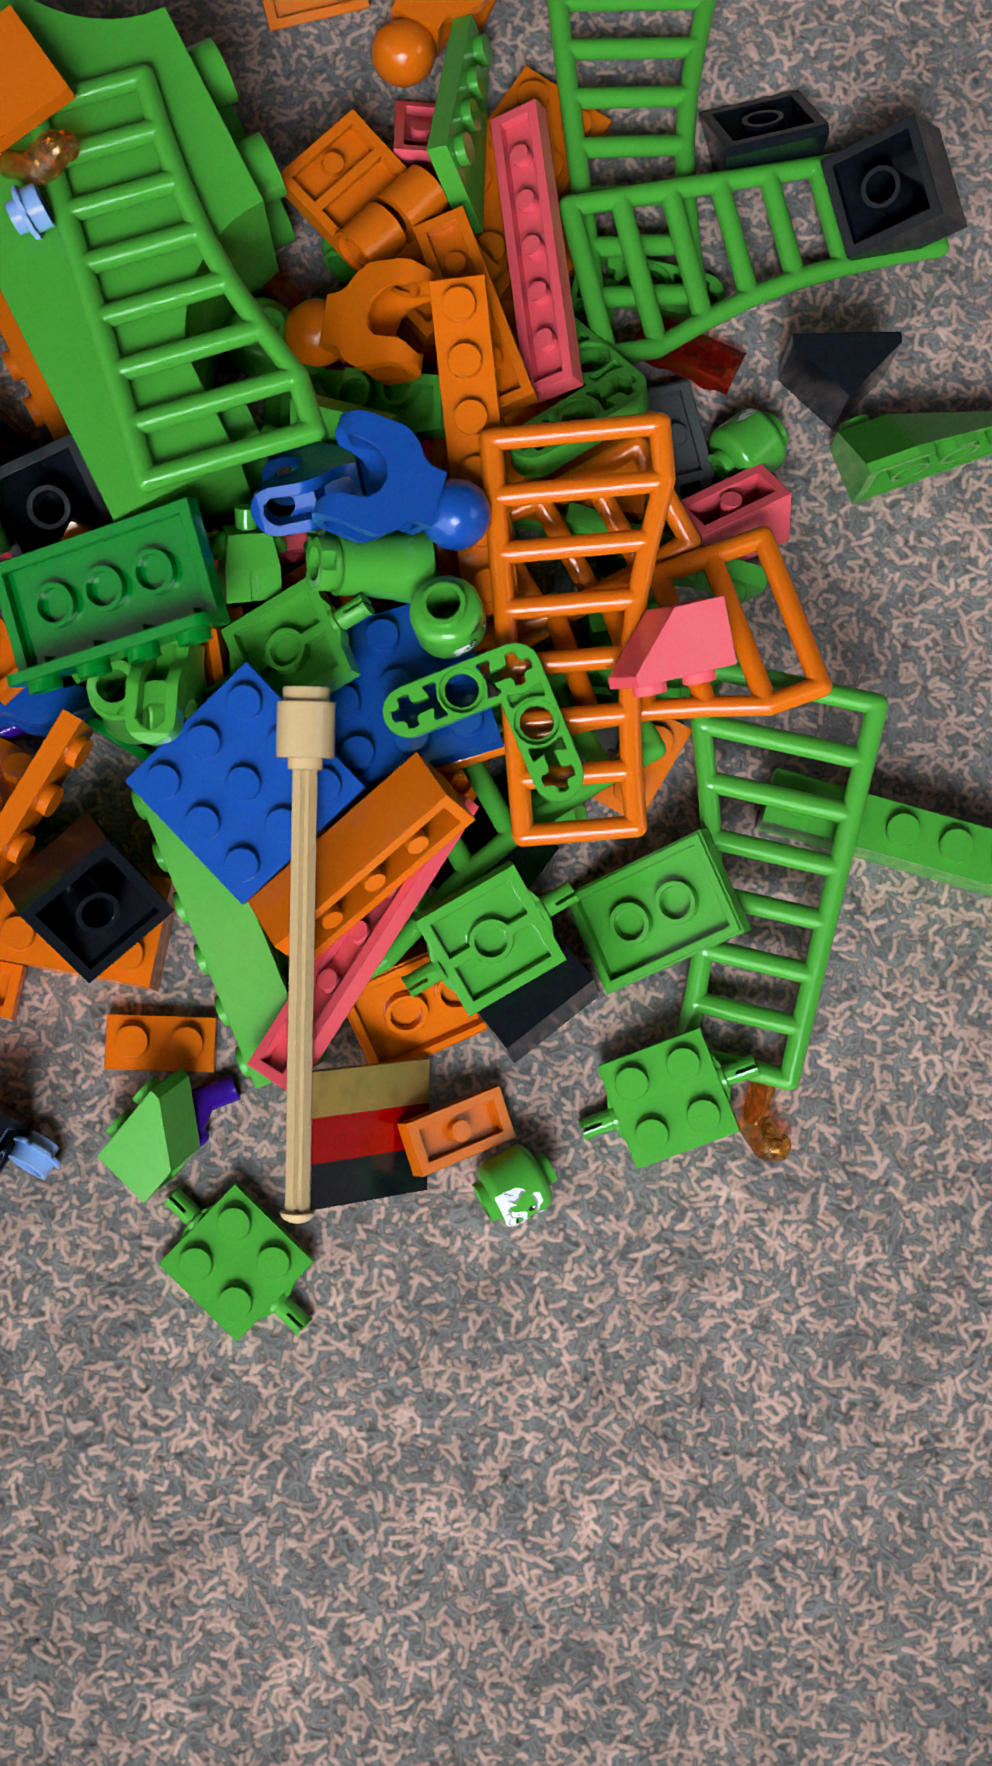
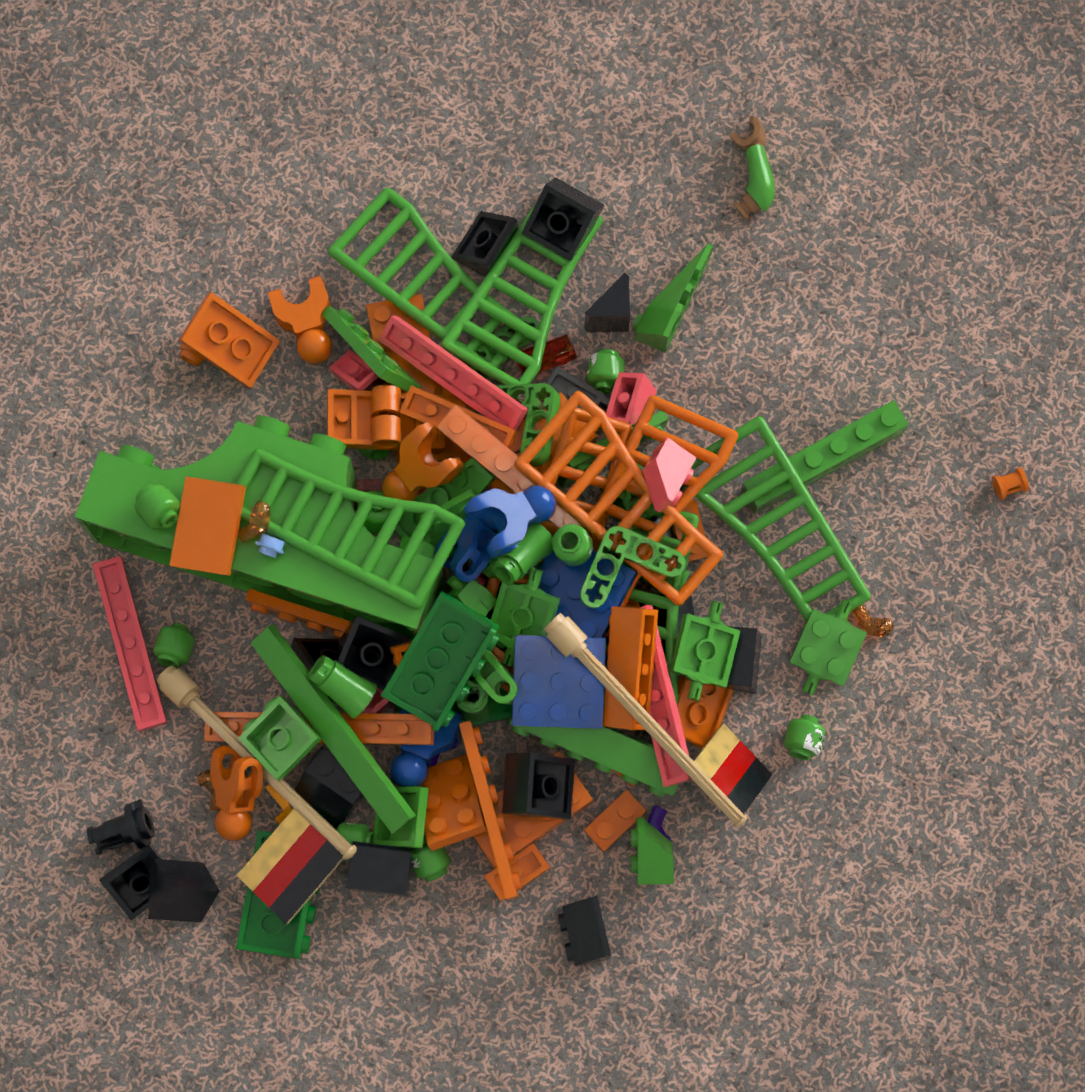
camera: 40 degrees left, 5 degrees down
(35, 1154) = (612, 910): light blue plate -> none
(237, 1261) = (729, 873): bright green plate -> none
(456, 1130) = (762, 739): orange plate -> none
(658, 911) = (753, 580): bright green tile -> none

